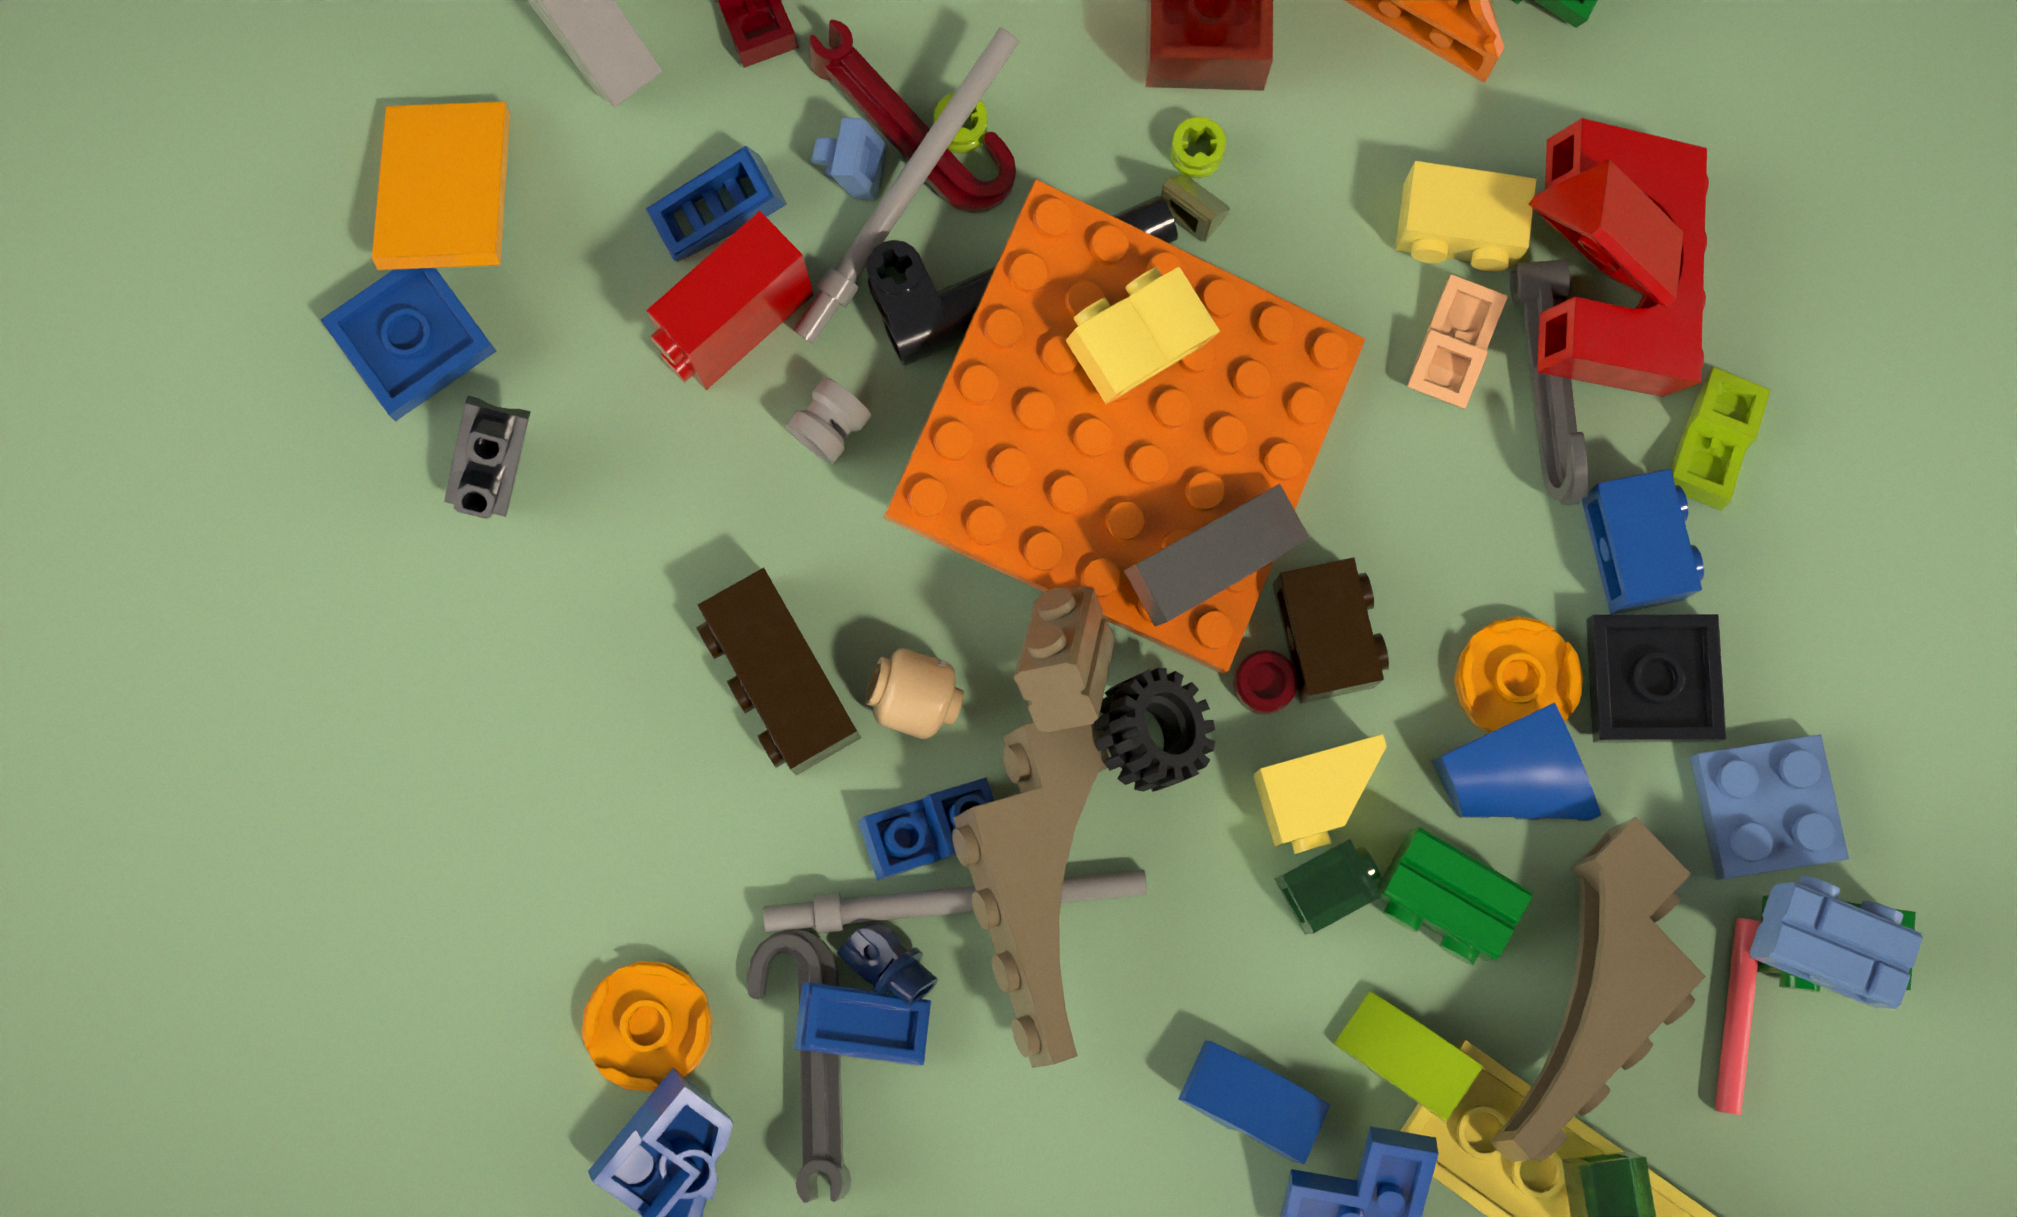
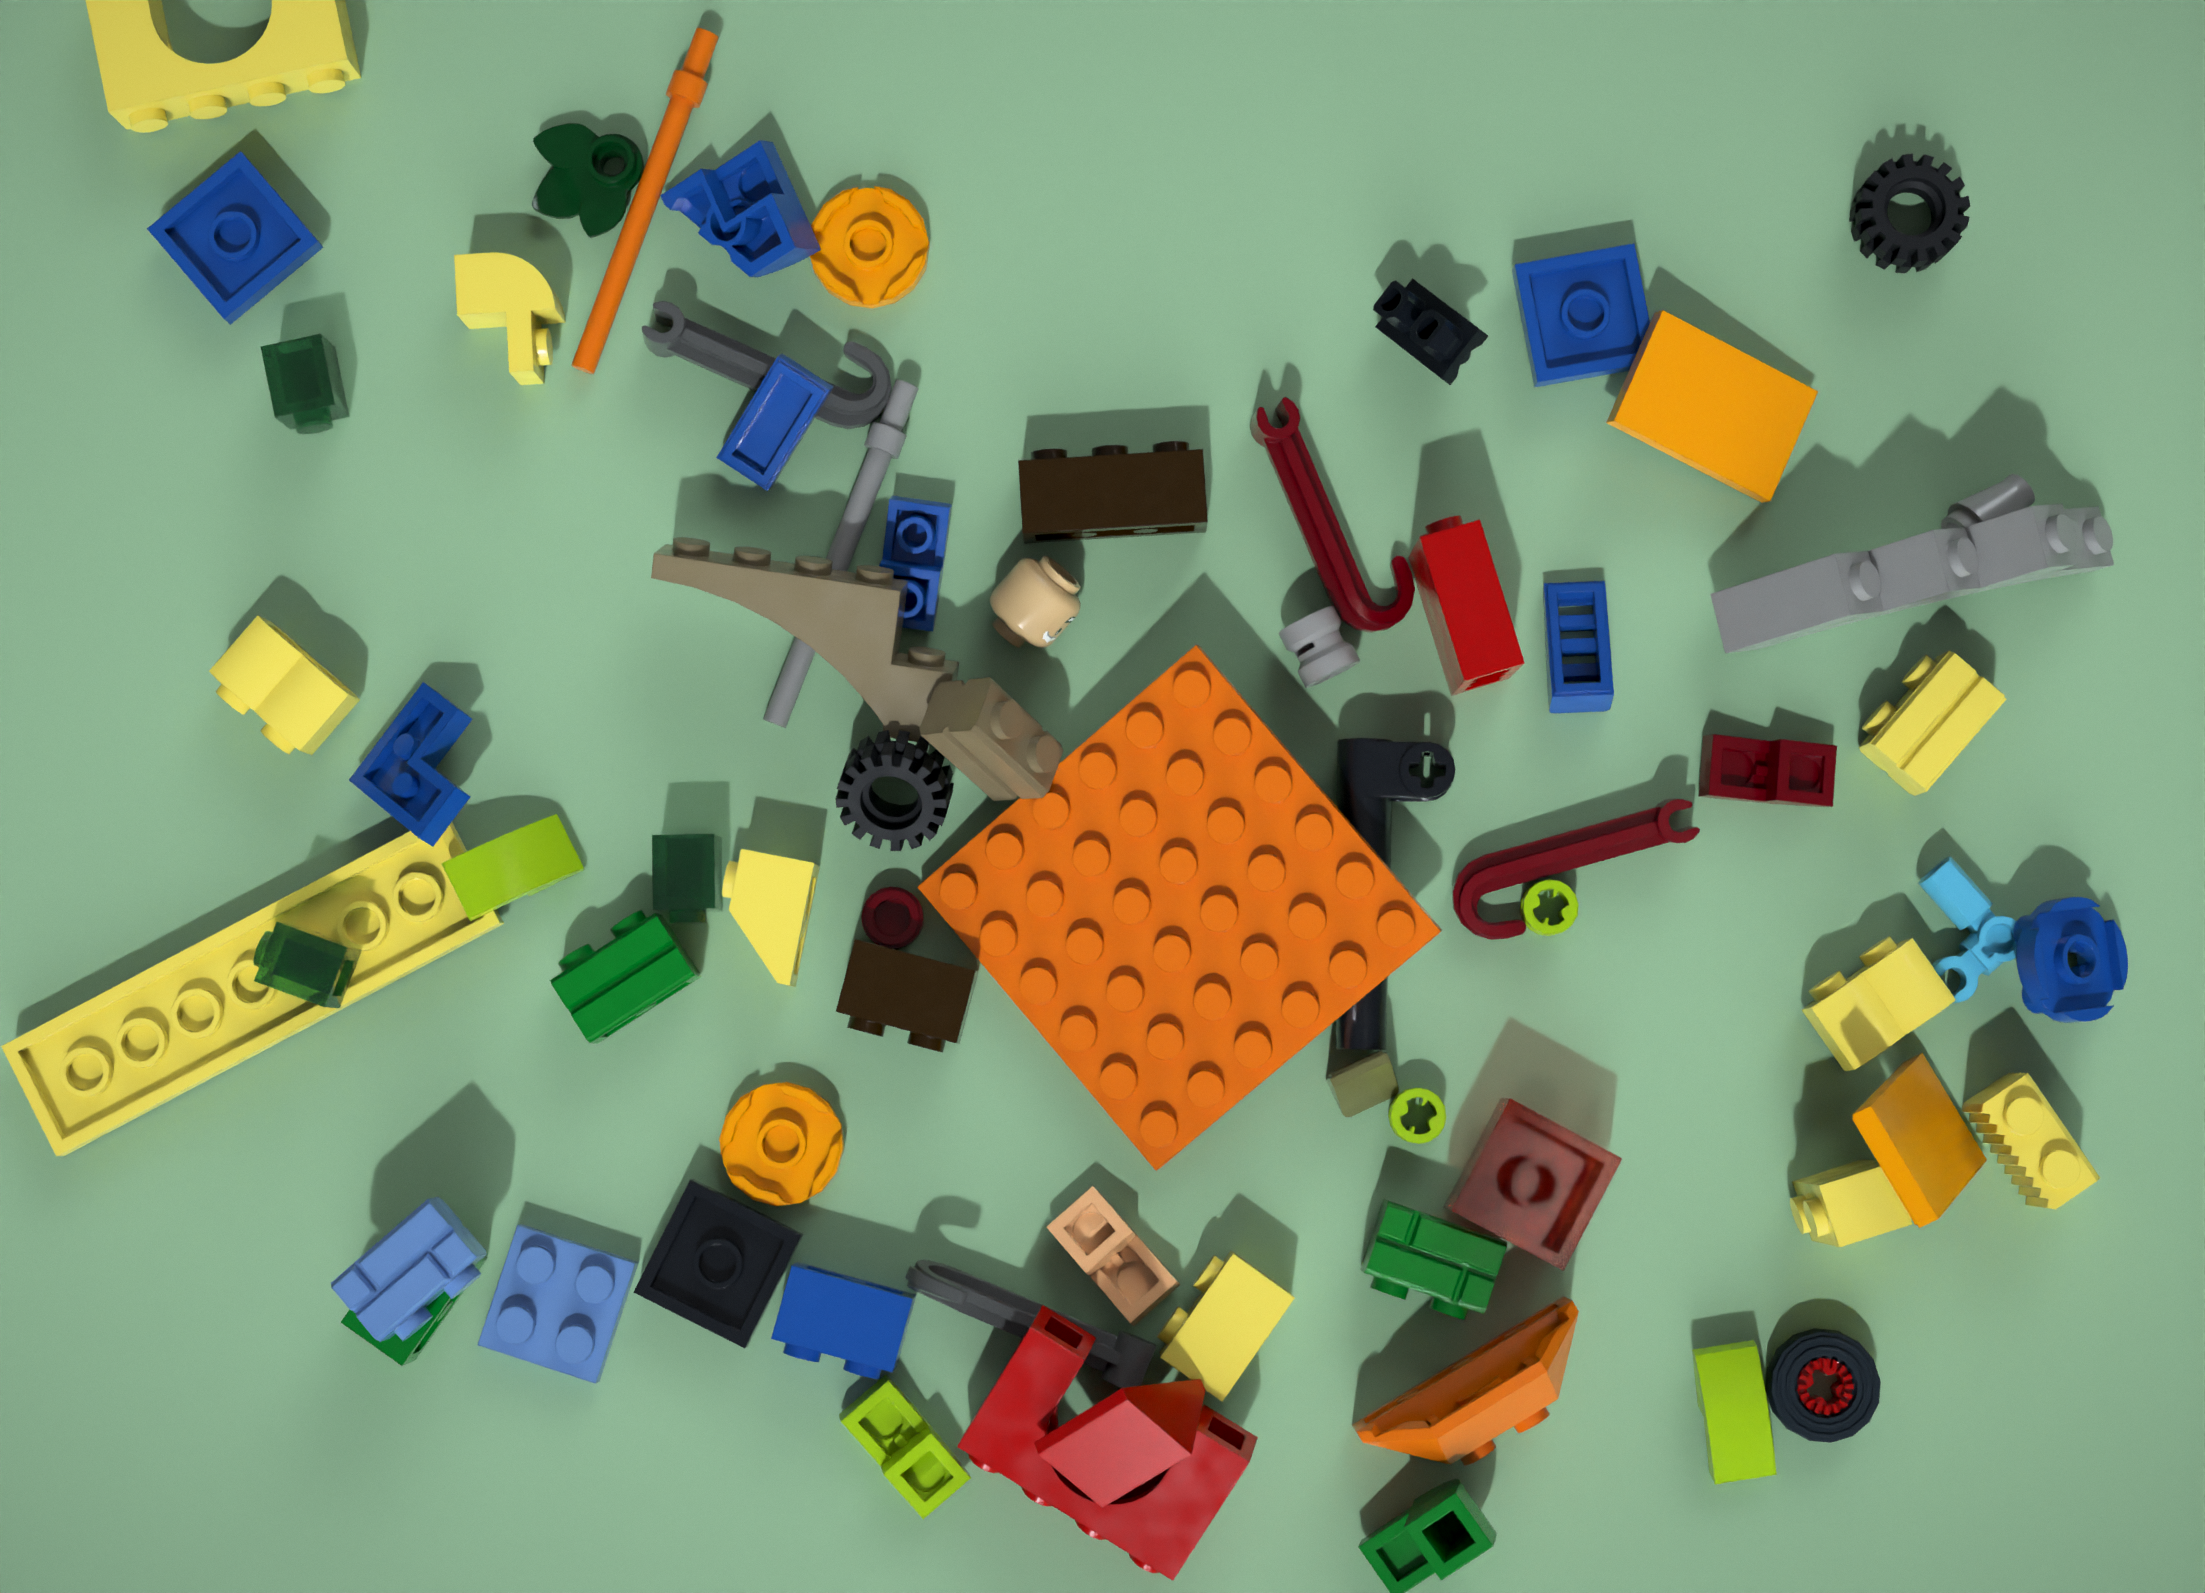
camera: 120 degrees right, 5 degrees up
(166, 75) = (1930, 184): none -> black tyre
(714, 476) = (1322, 530): none -> dark red piece
(838, 284) = (1444, 720): light grey bar -> none
(853, 158) = (1556, 789): medium blue tile -> none
(884, 962) = (814, 467): dark blue piece -> none
(1141, 333) = (1245, 949): light yellow brick -> none
(1216, 555) = (1016, 921): dark grey slope -> none
(1254, 1101) = (542, 717): blue slope -> none
(1315, 74) = (1432, 1258): none -> green brick
(1520, 772) = (700, 1096): blue slope -> none
(1621, 991) = (470, 1077): dark tan arch -> none
(1737, 1019) = (389, 1166): coral bar -> none

